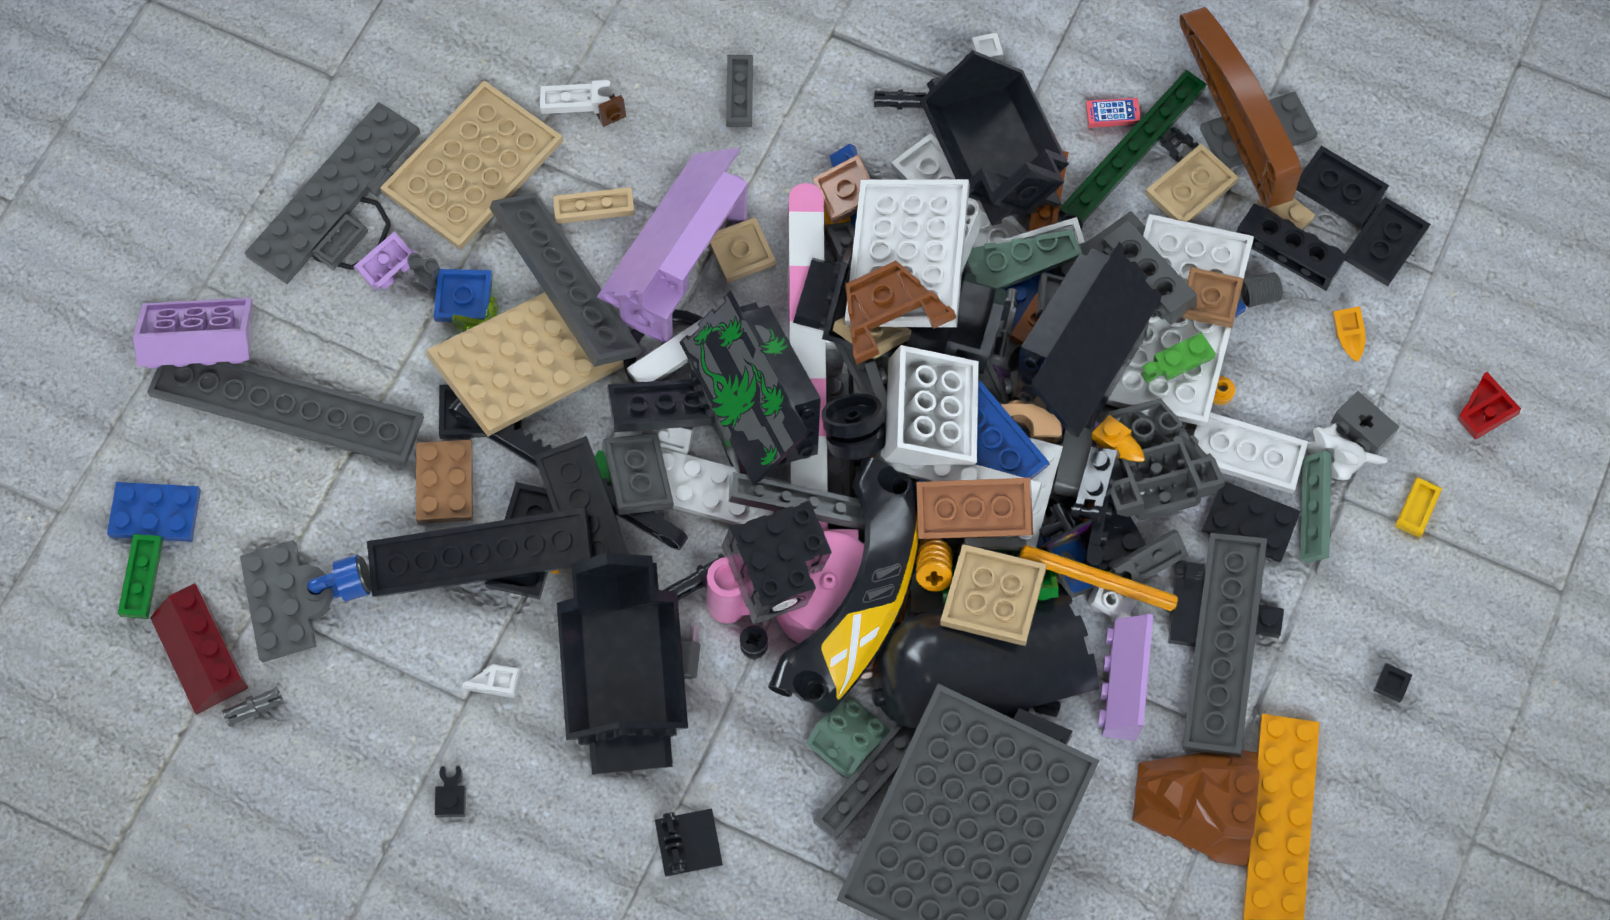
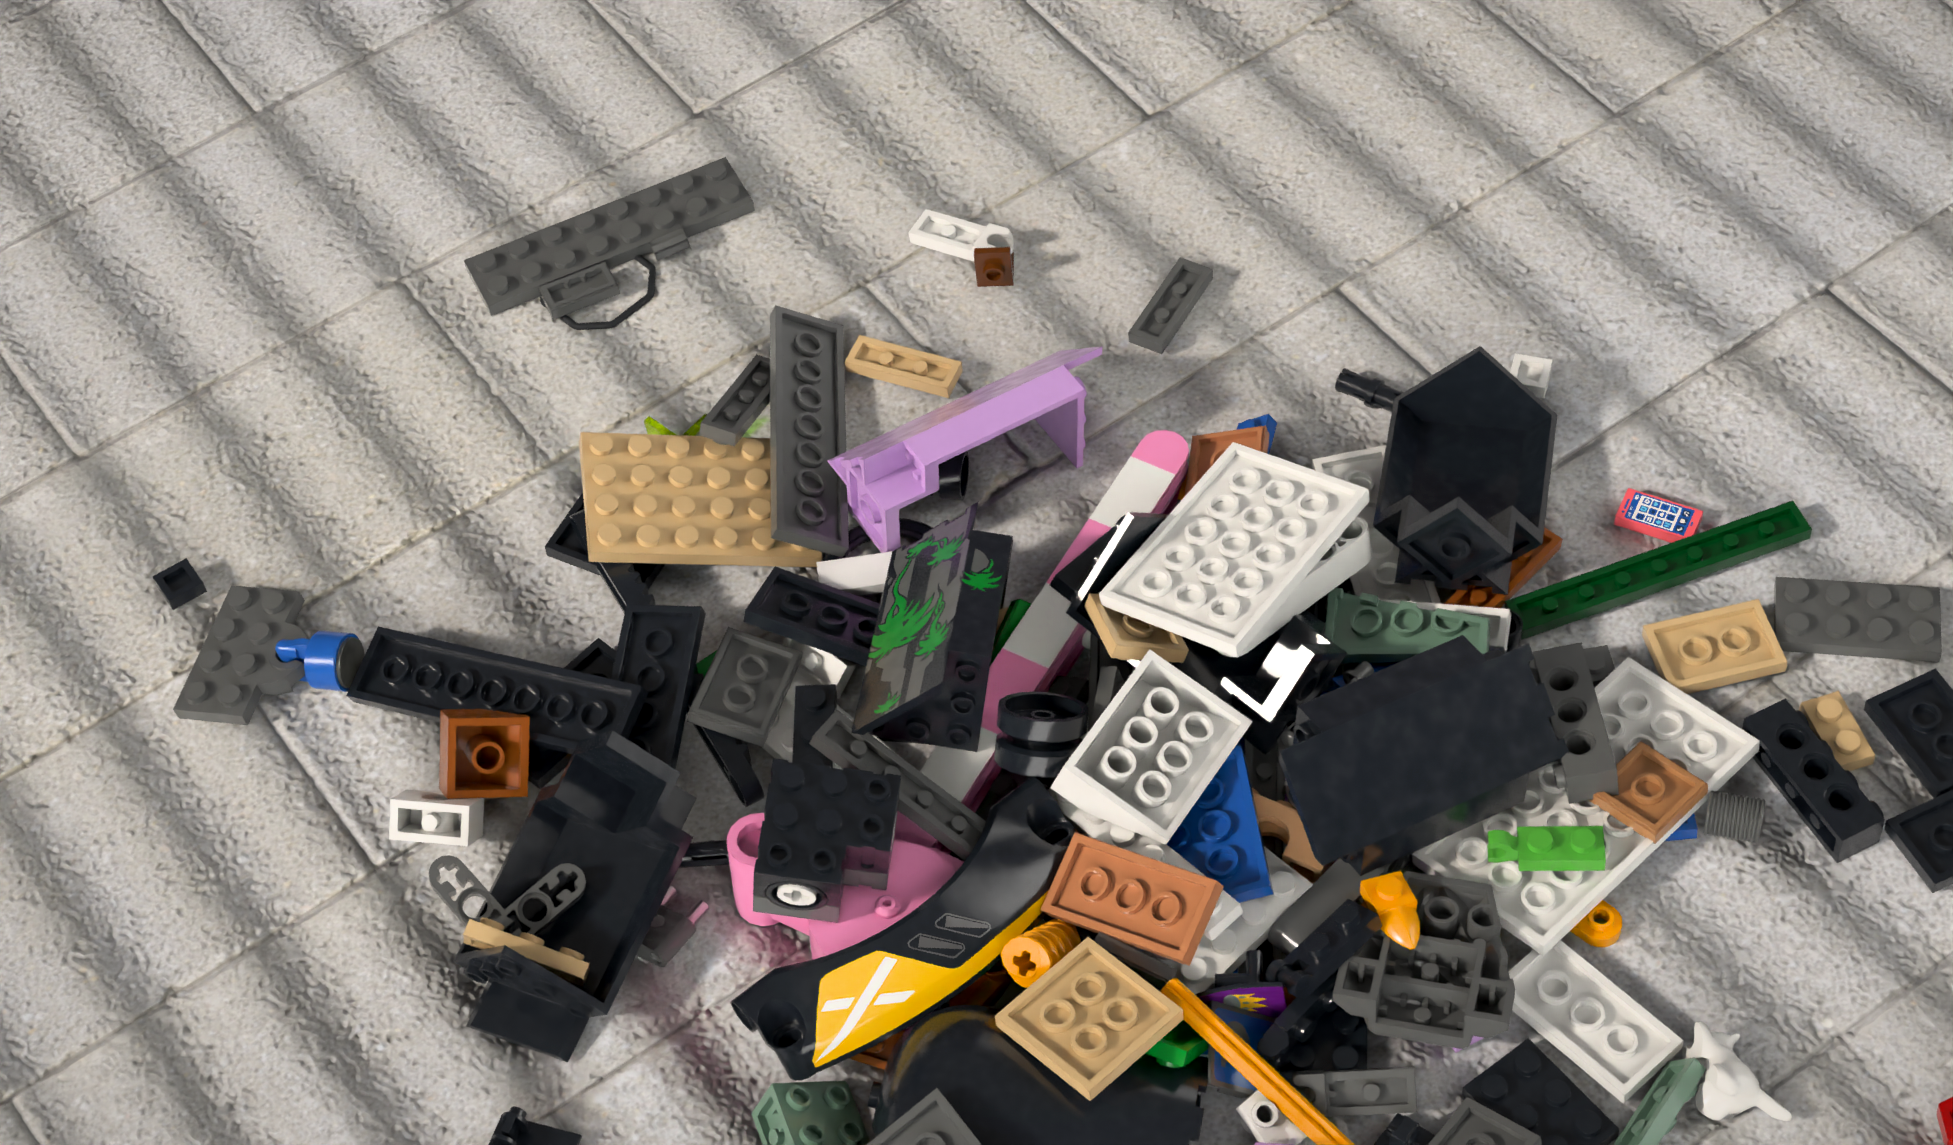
camera: 35 degrees right, 15 degrees down
(140, 576) = (109, 560): green plate -> none
(154, 511) = (174, 498): blue plate -> none
(193, 332) = (342, 318): lavender slope -> none
(197, 649) = (117, 666): dark red slope -> none
(202, 571) = (179, 584): none -> black plate
(253, 706) = (130, 758): dark grey pin -> none
(292, 407) = (399, 445): dark grey plate -> none
(384, 261) = (614, 332): lavender bracket -> none
(425, 272) = (651, 358): dark grey plate -> none
(444, 481) = (519, 604): medium nougat plate -> none
(450, 798) = (282, 970): black plate -> none
(462, 294) = (676, 399): blue plate -> none
(470, 161) = (797, 256): tan plate -> none
(491, 651) = (435, 819): none -> white brick
(495, 681) = (417, 859): white tile -> none
(498, 597) = (483, 754): none -> dark orange slope
(511, 278) = (739, 404): none -> dark grey plate
(579, 699) = (494, 909): none -> dark grey beam
(617, 712) = (565, 964): none -> tan plate
(700, 488) = (812, 709): none -> black plate
(741, 250) = (1052, 488): tan plate -> none
(755, 648) = (773, 956): black wheel -> none
(883, 297) = (1158, 580): dark orange wing -> none
(1185, 139) = (1741, 587): black piece -> none
(1244, 109) = (1833, 573): dark orange beam -> none
(1350, 331) = (1837, 925): light orange plate -> none
(1360, 411) = (1783, 1055): dark grey brick -> none

